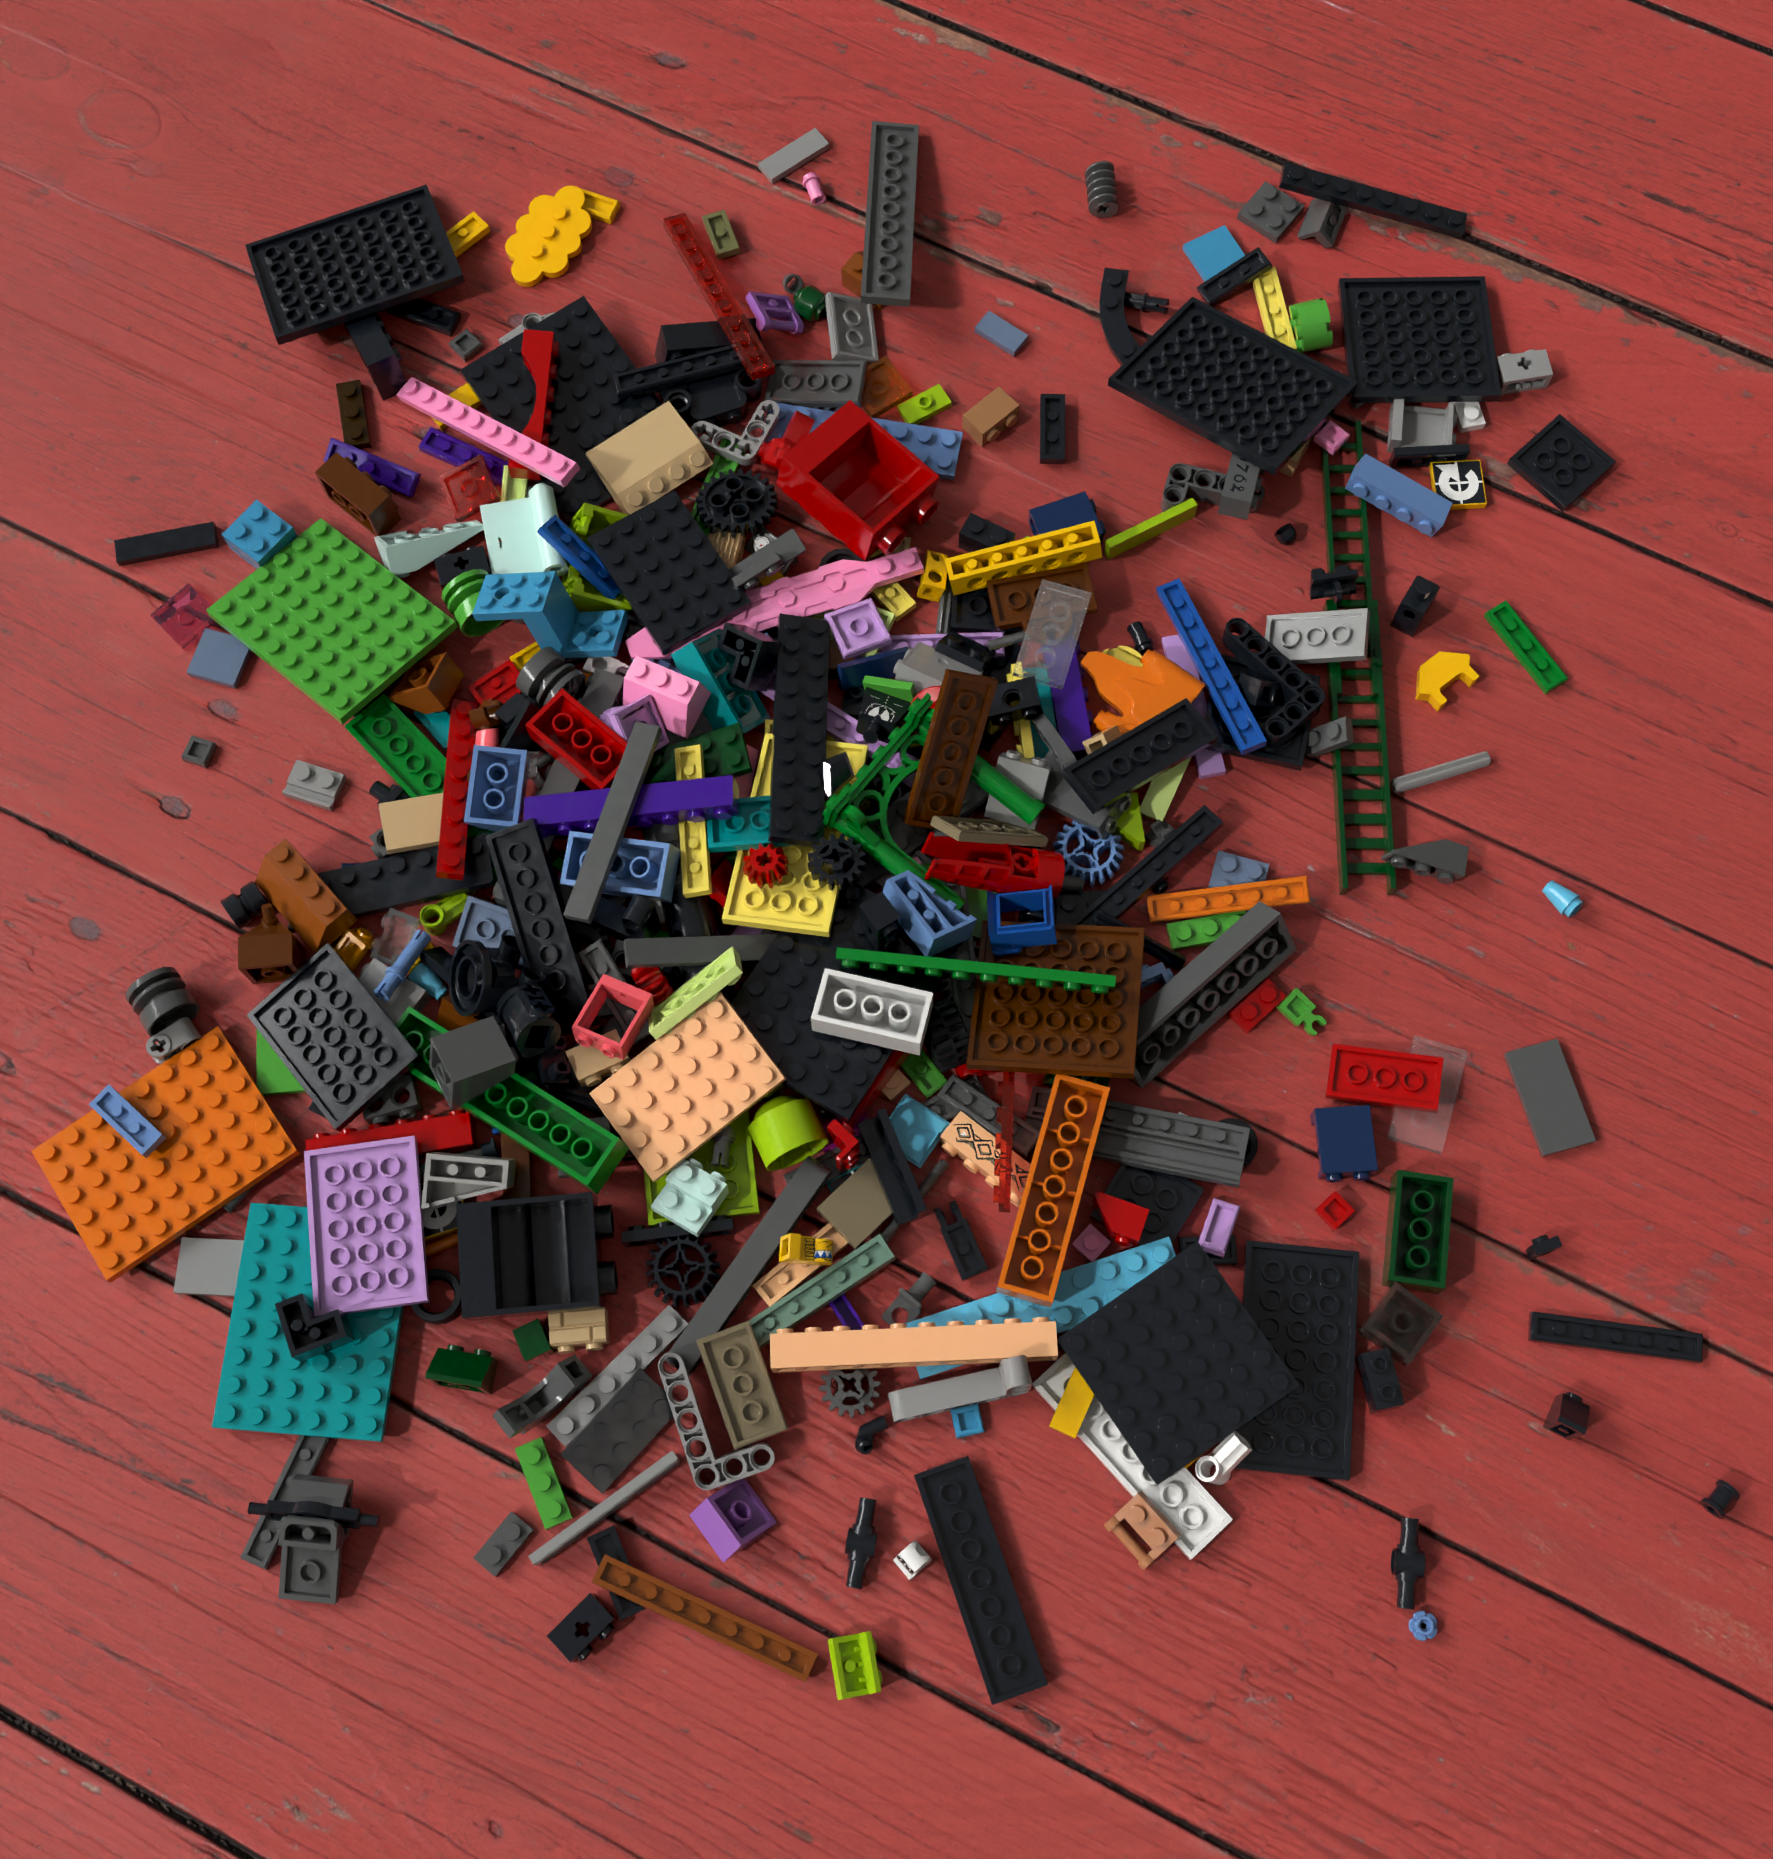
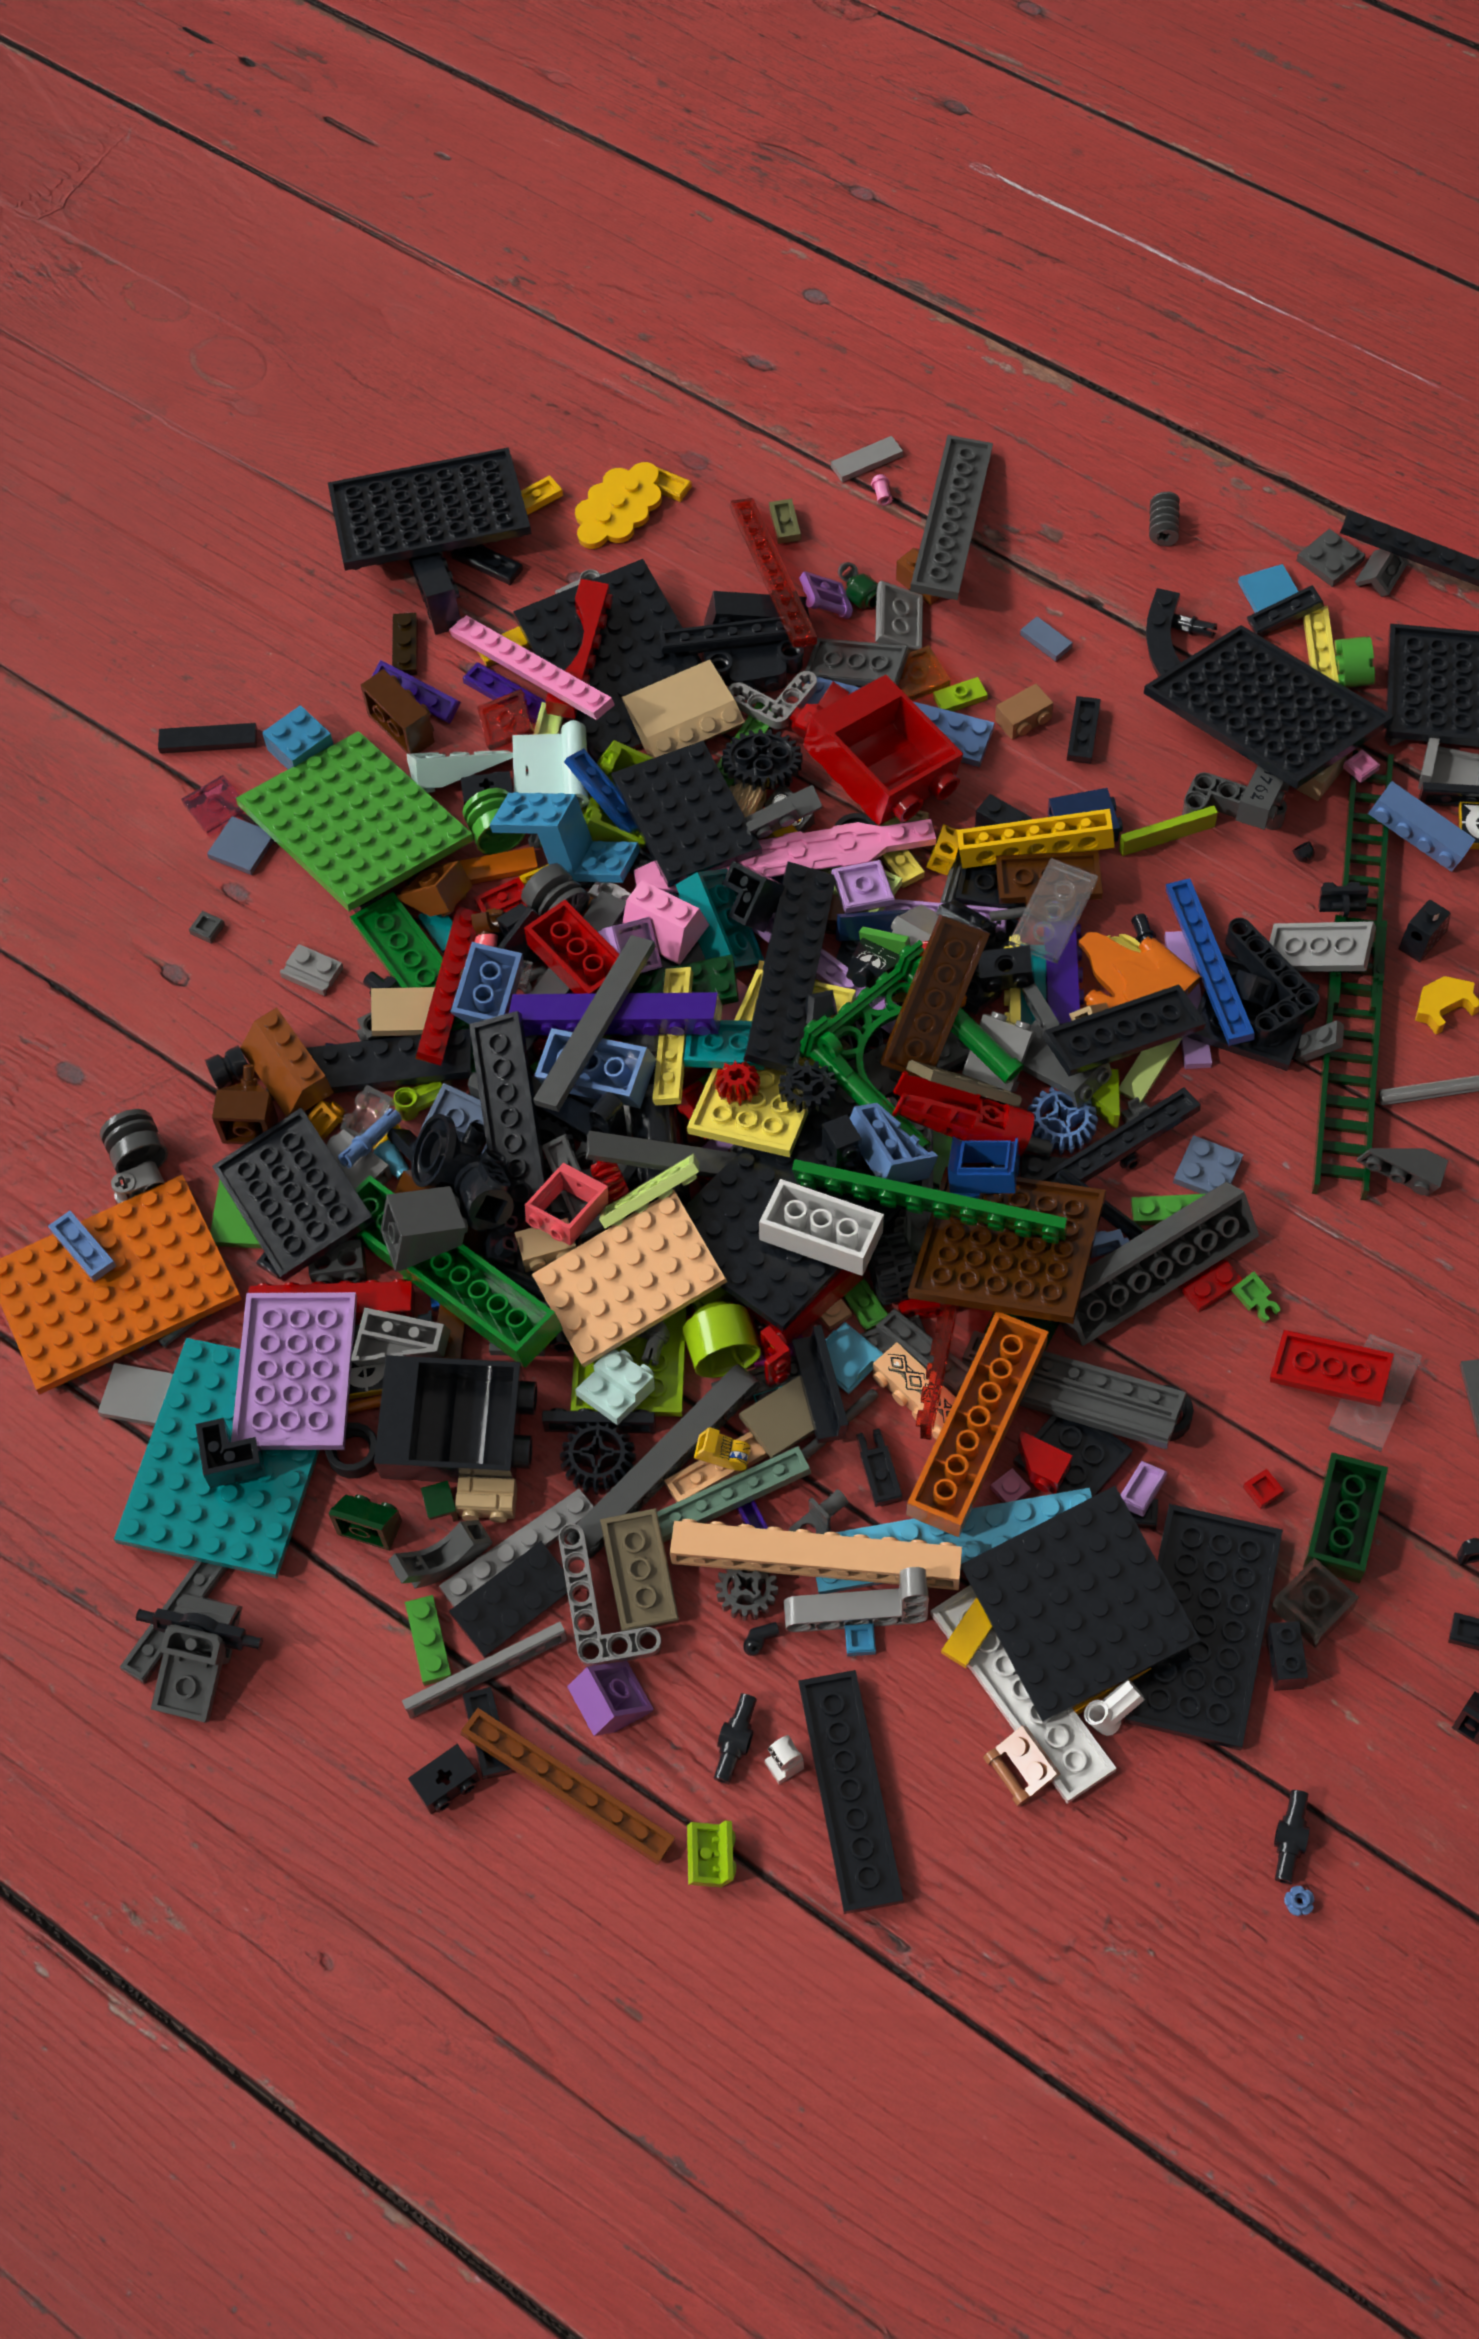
camera: 10 degrees right, 10 degrees down
(466, 345) = (523, 594): dark grey tile -> none
(488, 647) = (500, 865): none -> orange tile
(503, 1544) = (379, 1691): dark grey plate -> none
(1227, 898) = (1194, 1179): orange tile -> none
(1345, 1143) = (1282, 1425): dark blue panel -> none

